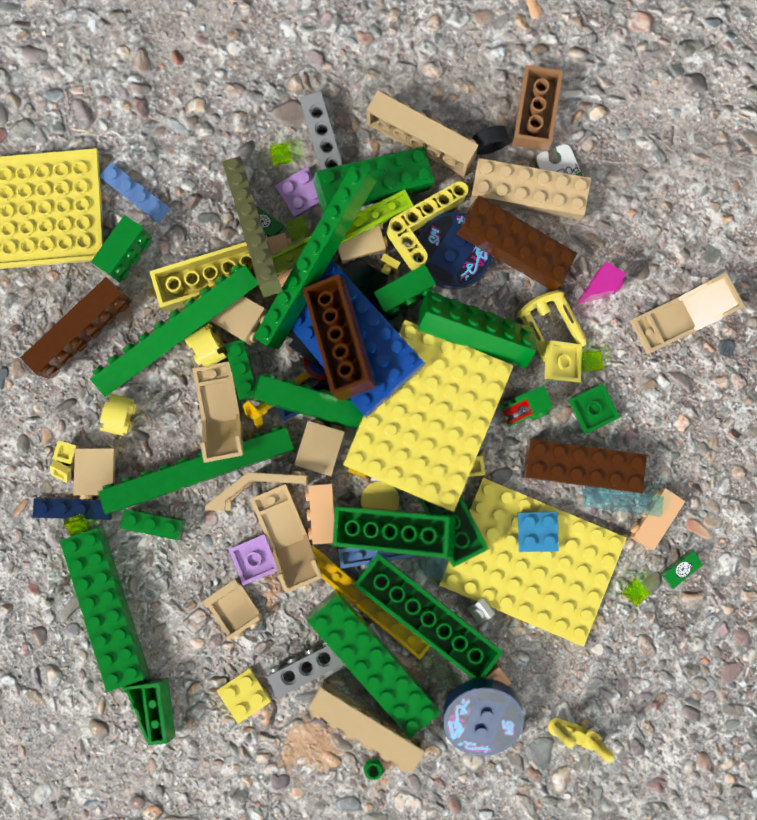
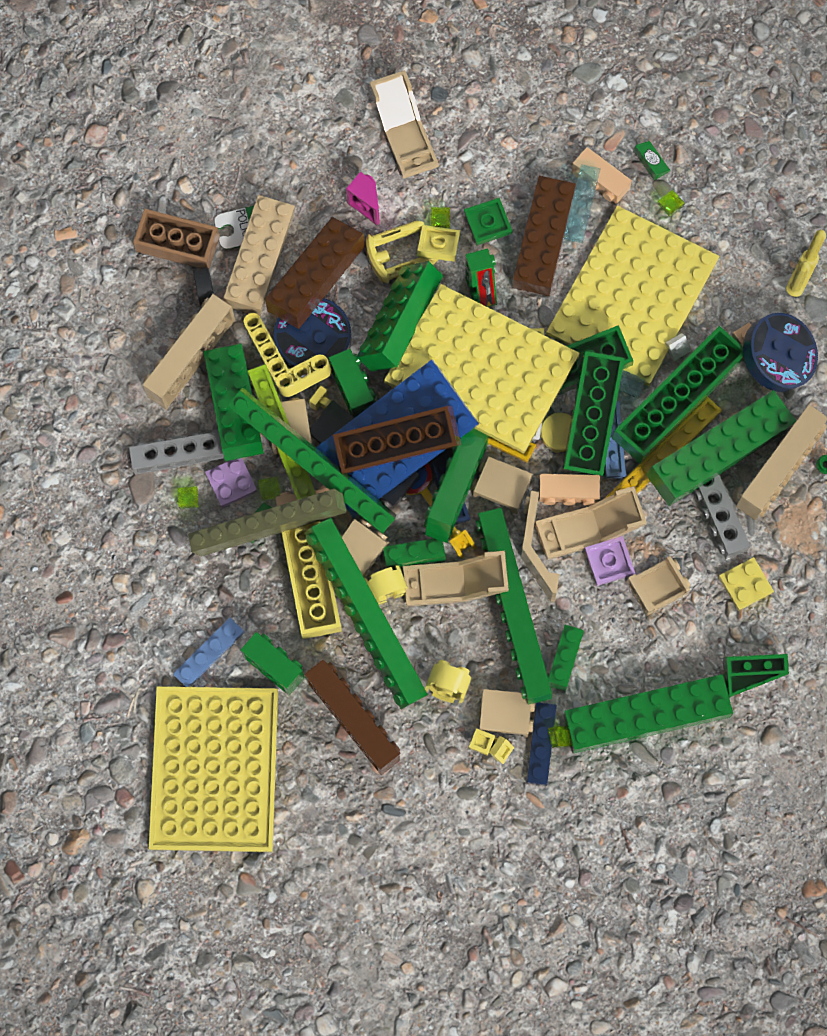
camera: 85 degrees left, 10 degrees down
(538, 532) = (605, 284): dark azure plate -> none

